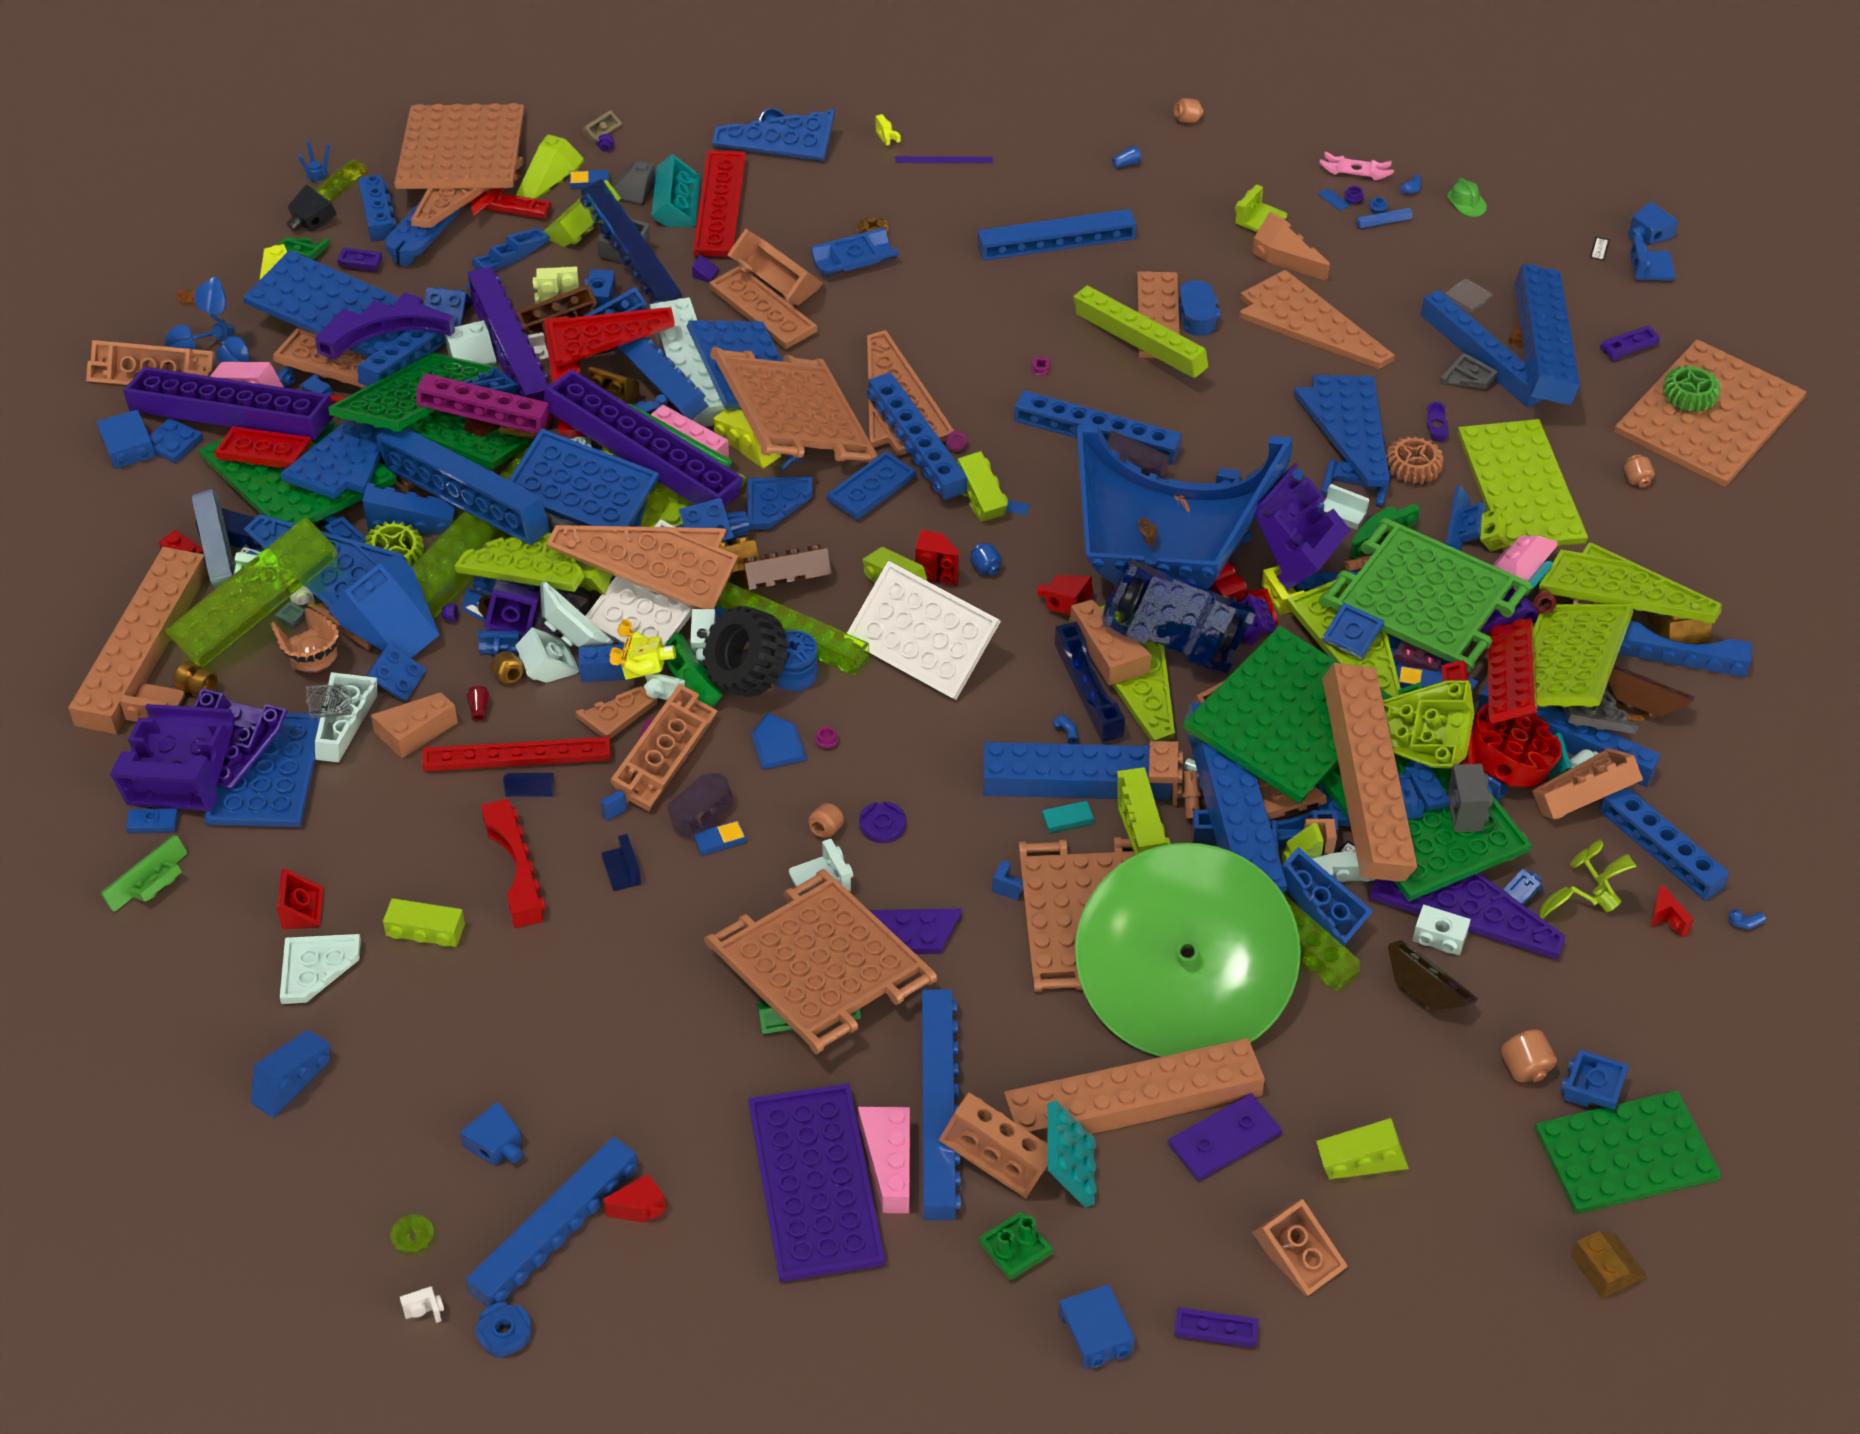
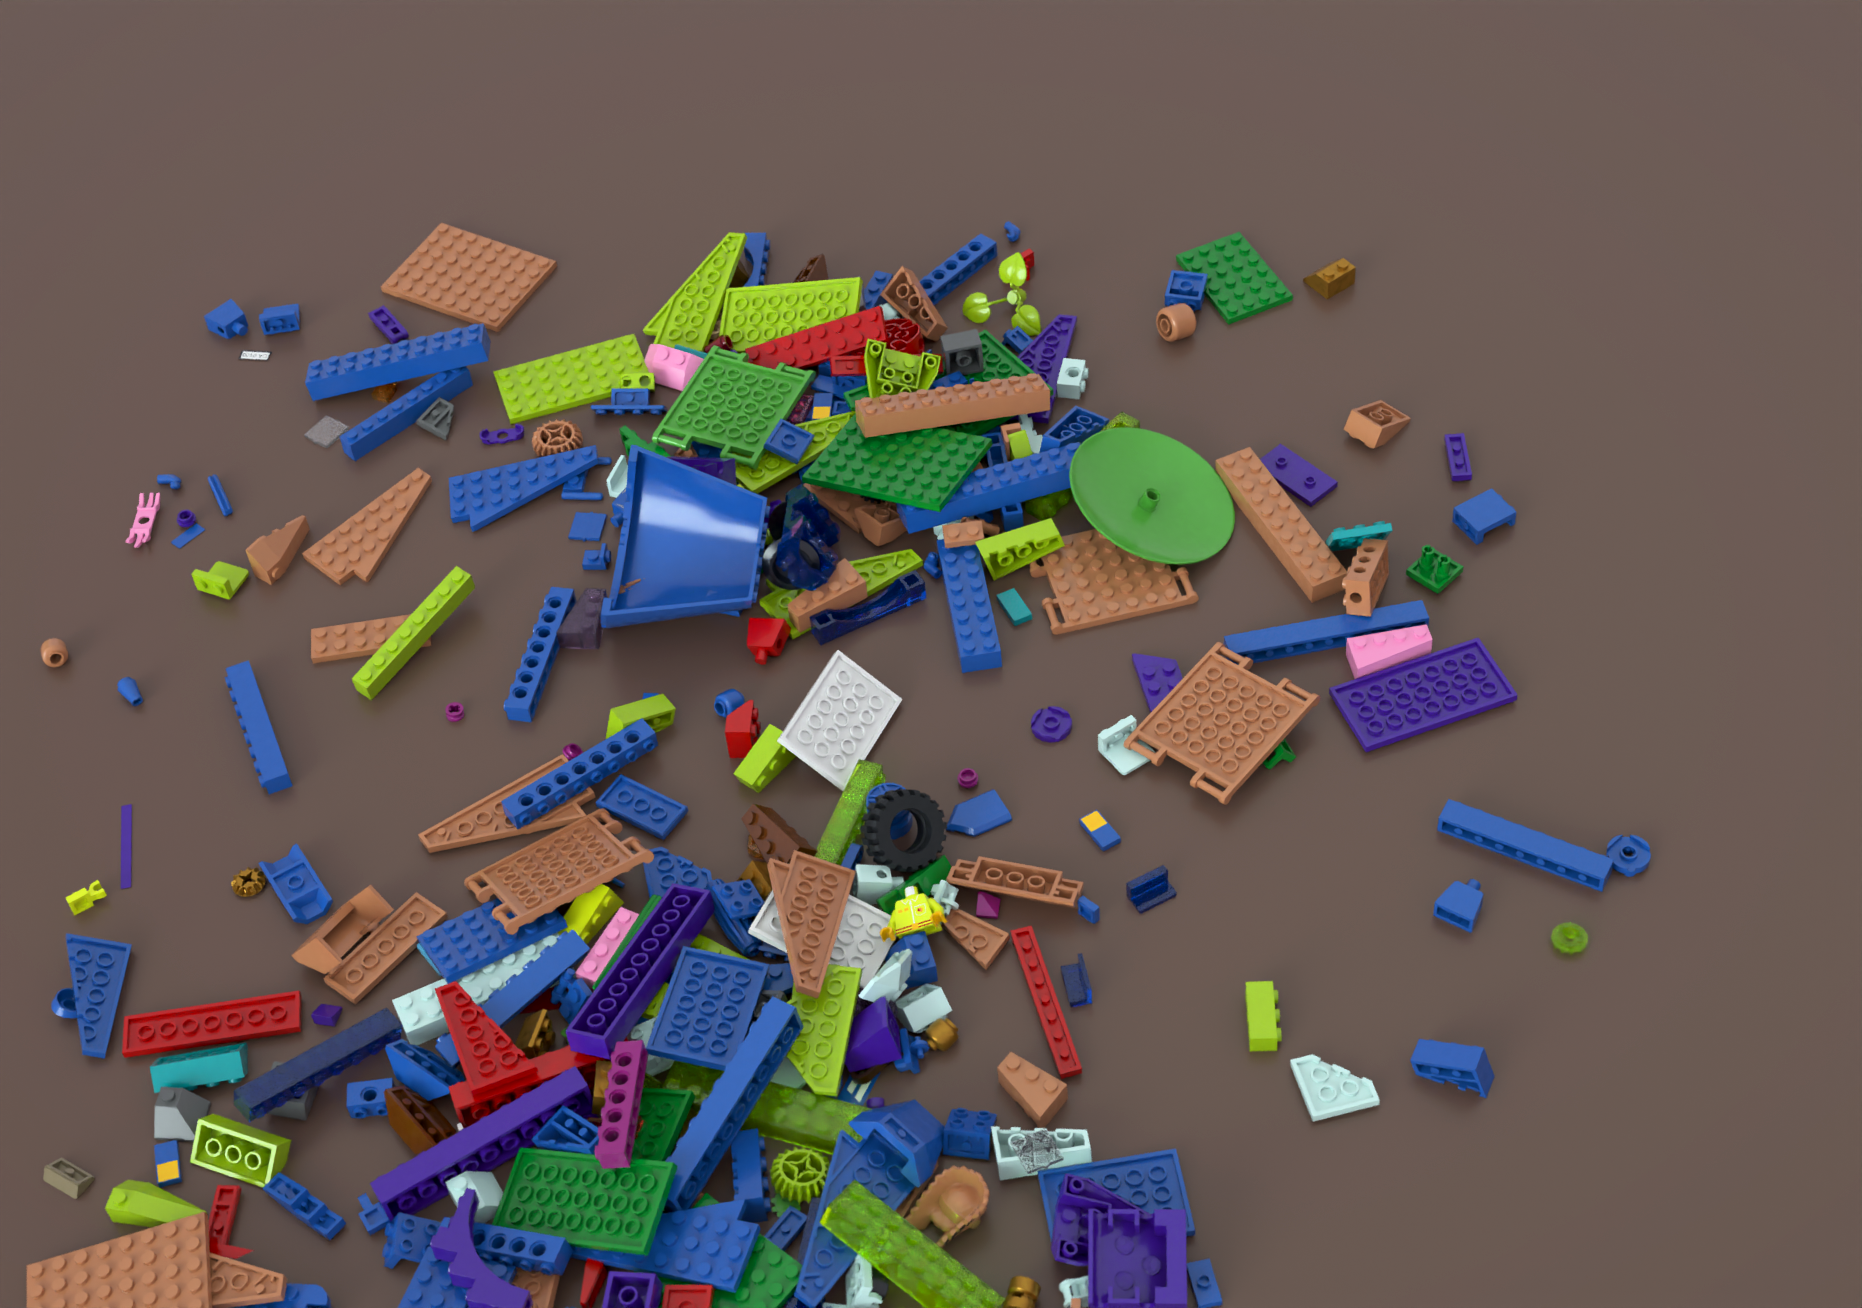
camera: 95 degrees left, 0 degrees up
(147, 876) = (1279, 1252): bright green bracket -> none
(298, 901) = (1268, 1123): red slope -> none
(420, 1302) = (1630, 910): white bracket -> none
(478, 701) = (987, 1049): dark red cone -> none
(522, 898) = (1211, 949): red arch -> none
(554, 282) = (381, 1132): yellowish green plate -> none
(605, 142) = (102, 1161): dark purple plate -> none
(636, 1201) = (1483, 794): red slope -> none
(700, 804) = (1073, 844): clear purple brick -> none
(826, 820) = (1065, 756): nougat head -> none
(1005, 884) = (1095, 632): blue panel -> none
(1070, 727) = (918, 618): blue arm -> none
(1149, 530) = (682, 590): clear orange arm -> none
(1198, 308) = (364, 604): blue brick -> none
(1363, 1151) = (1289, 395): lime wedge -> none
(1378, 205) = (201, 501): blue plate -> none
(1426, 980) = (1127, 375): dark brown wedge -> none
(1467, 199) = (188, 442): bright green piece -> none
(1639, 471) = (552, 308): nougat head -> none
(1691, 388) = (456, 277): bright green gear -> none

